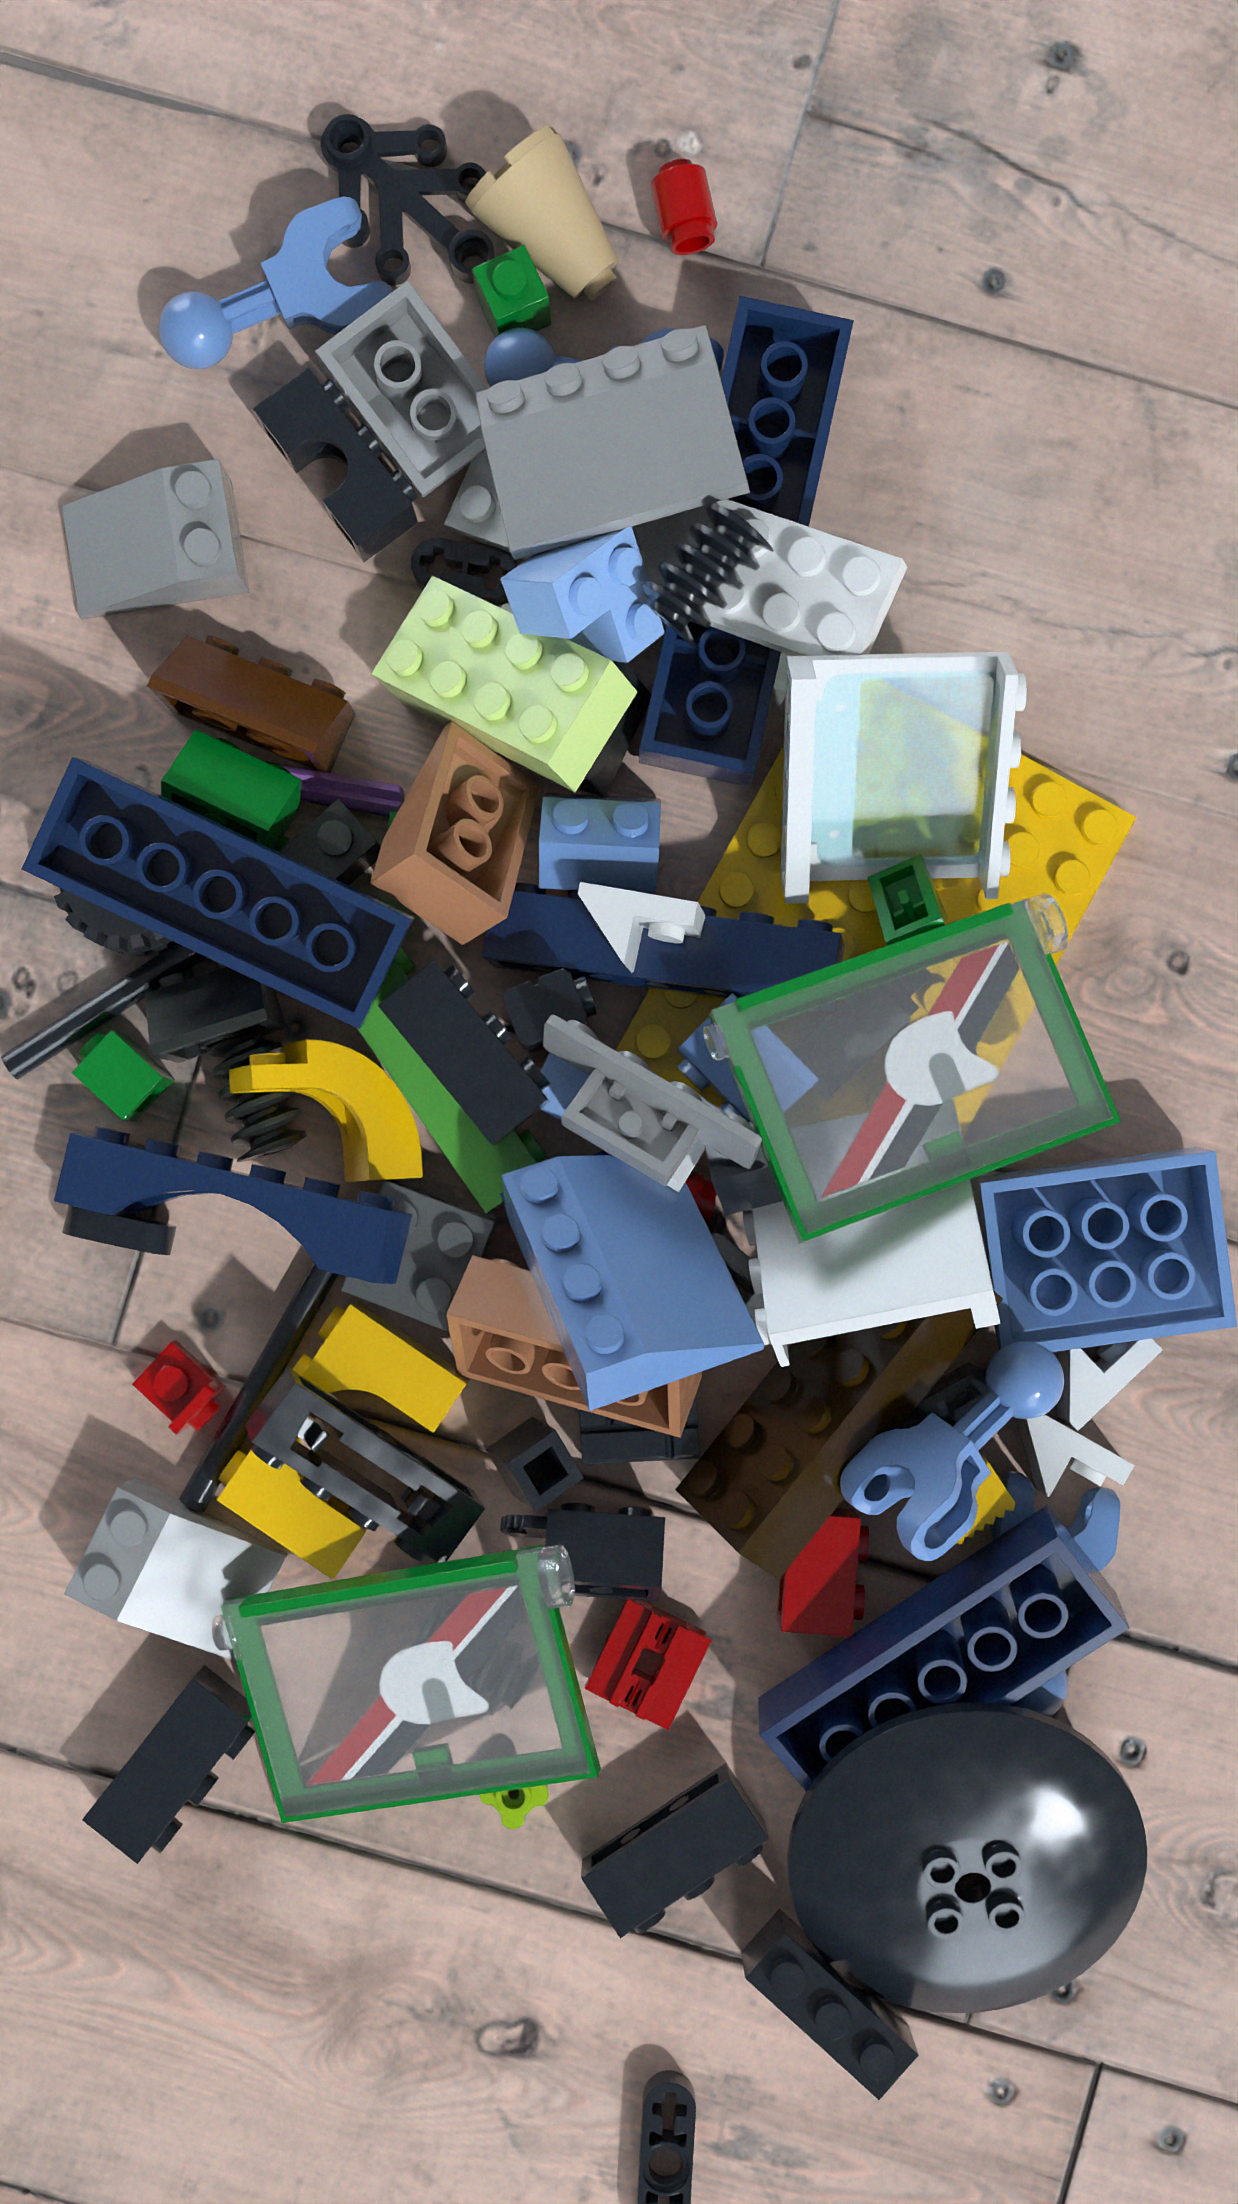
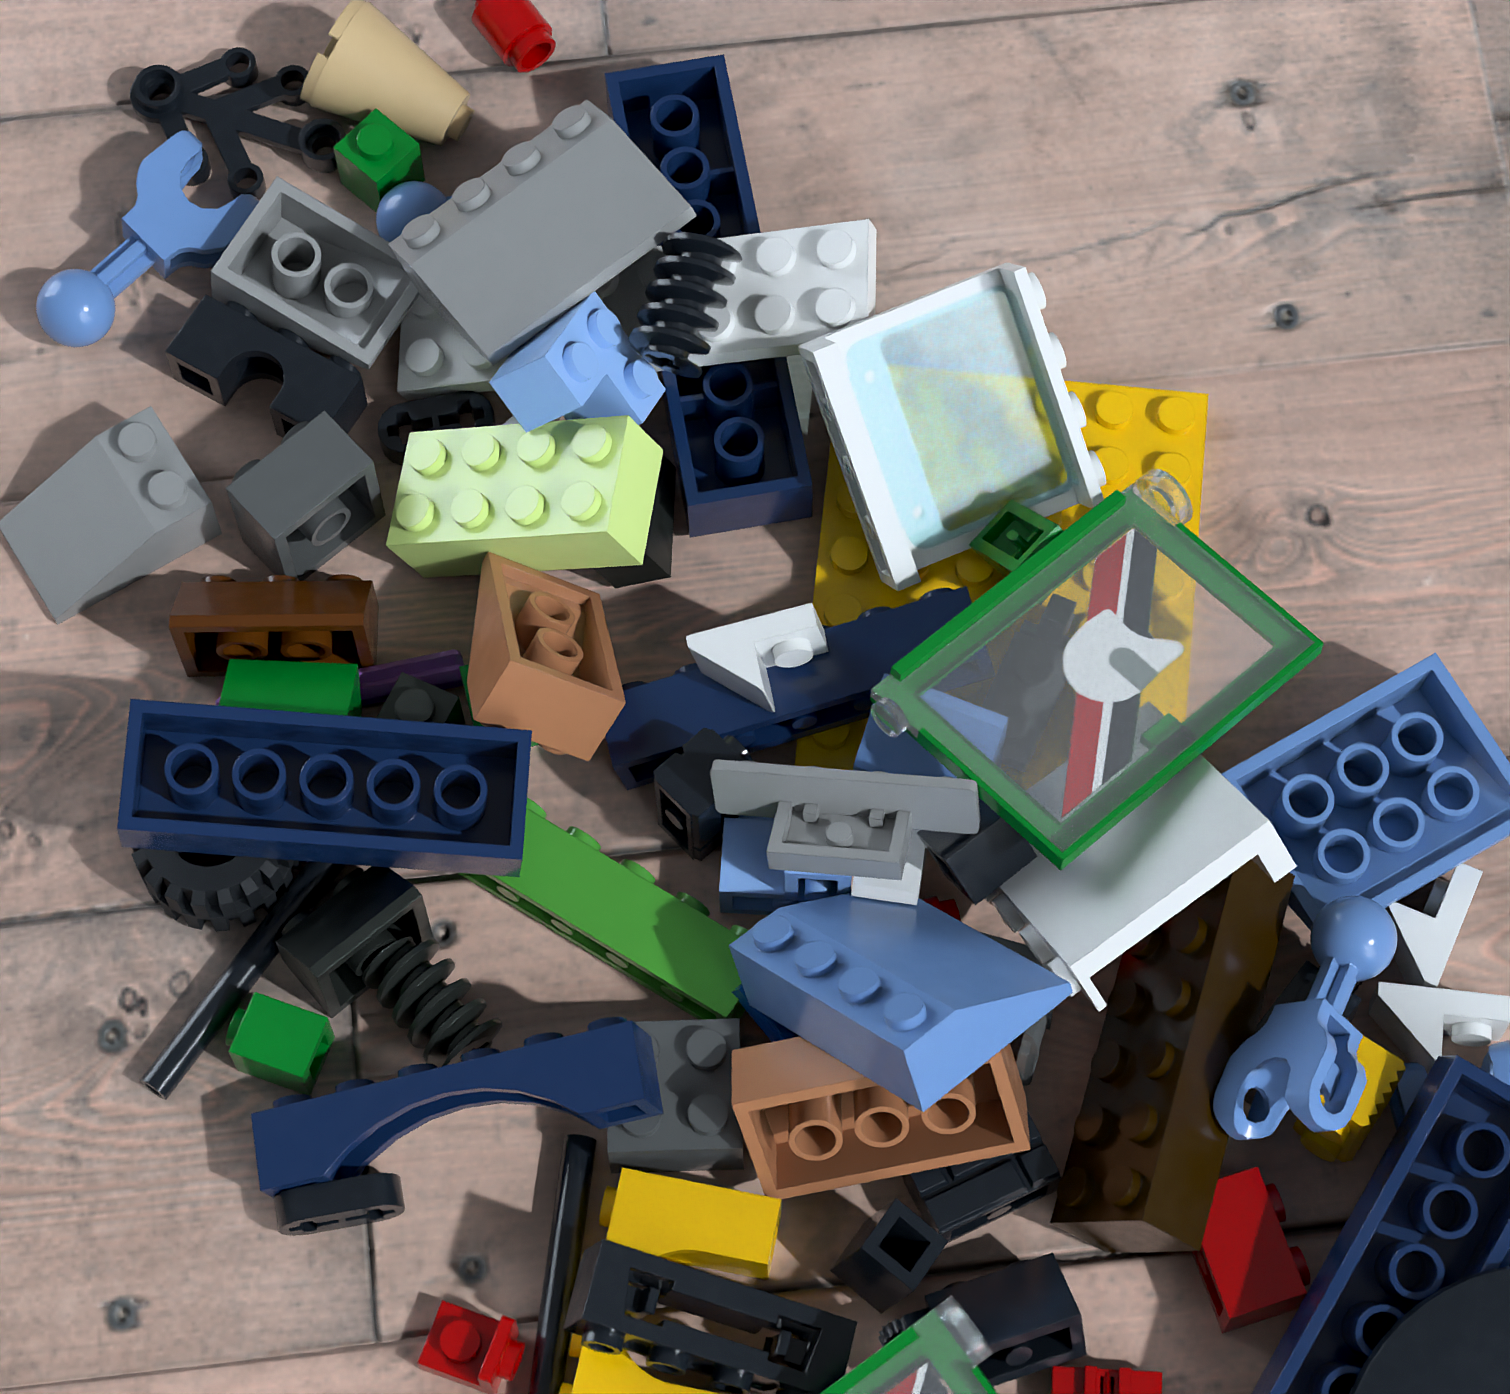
camera: 20 degrees left, 20 degrees down
(318, 600) = (306, 498): none -> dark grey brick
(365, 1102) = (534, 953): yellow arch -> none
(466, 1051) = (638, 856): black brick -> none
(599, 842) = (681, 599): medium blue slope -> none

